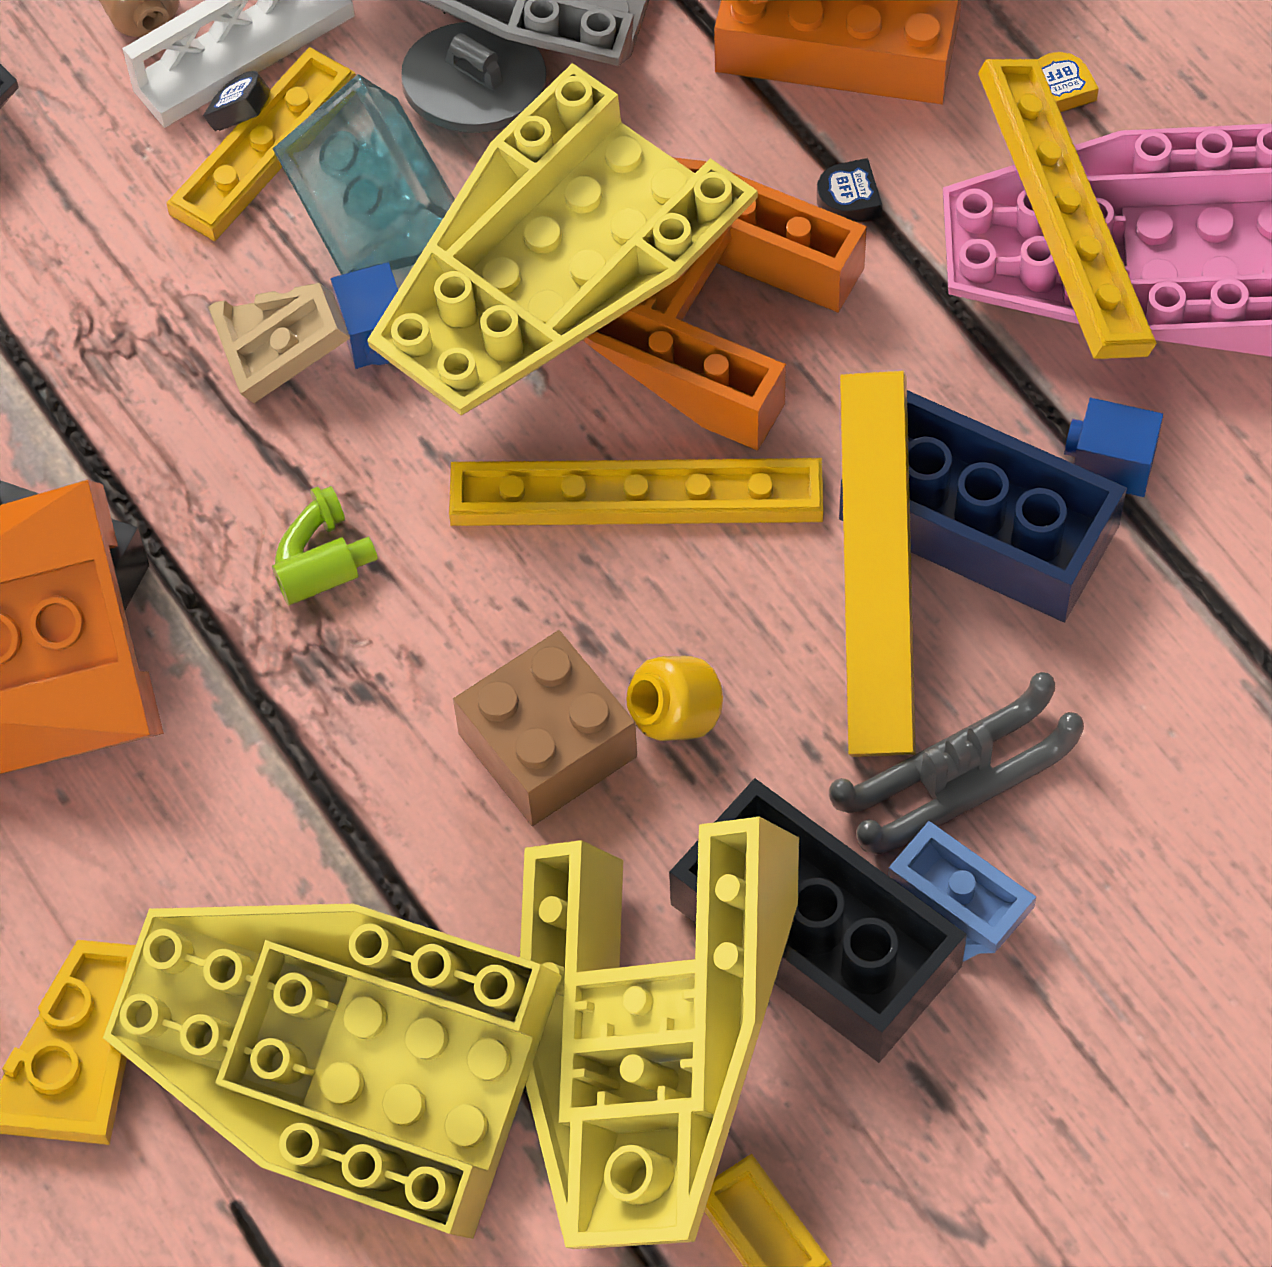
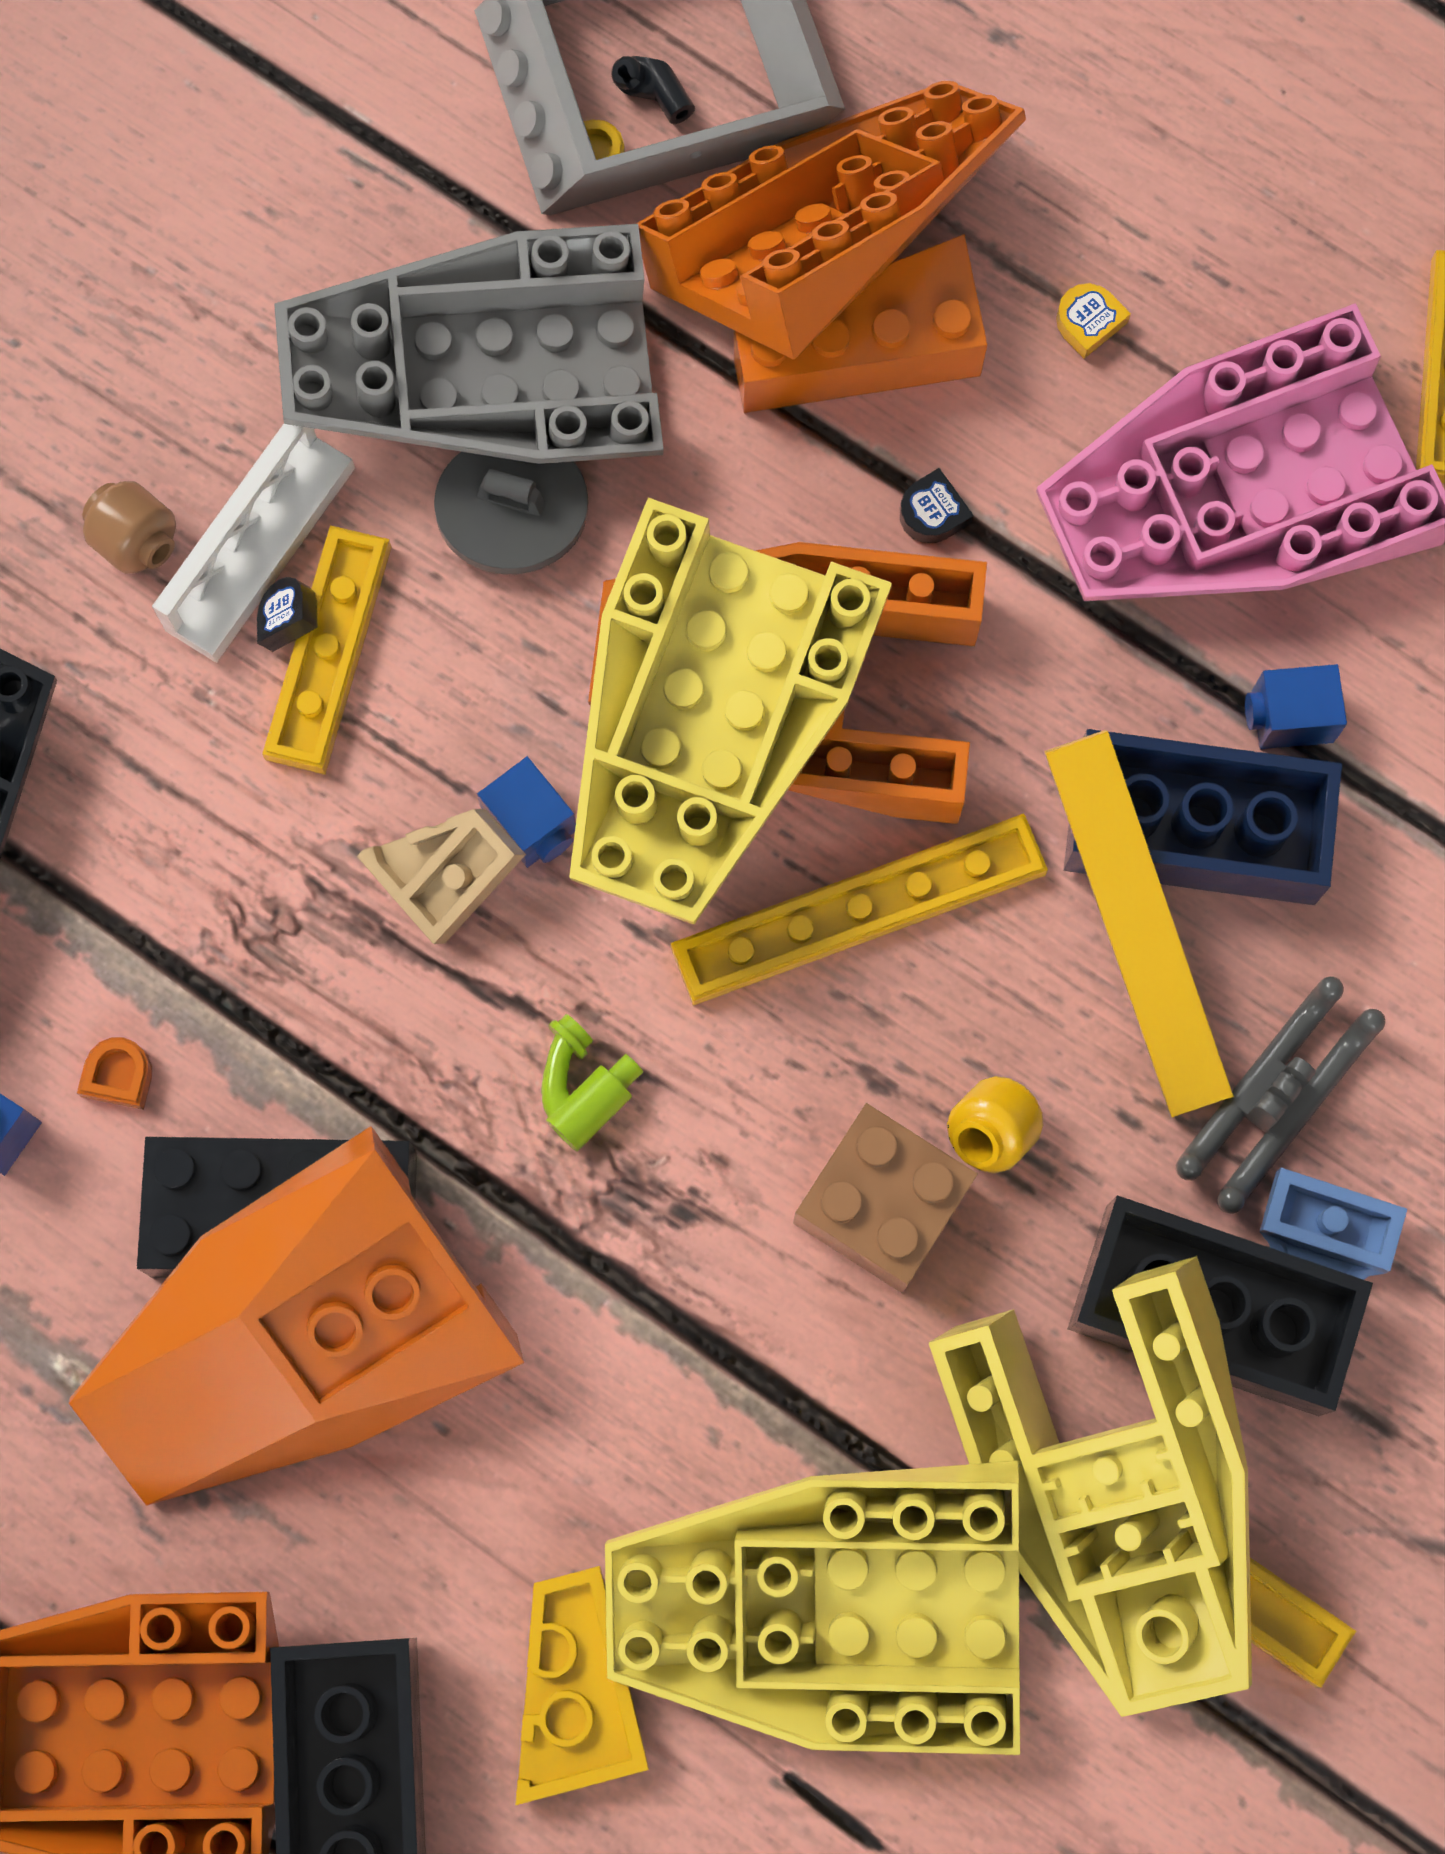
camera: 25 degrees left, 15 degrees up
(365, 178) = (463, 667): clear light blue slope -> none
(1066, 209) = (1171, 477): yellow tile -> none

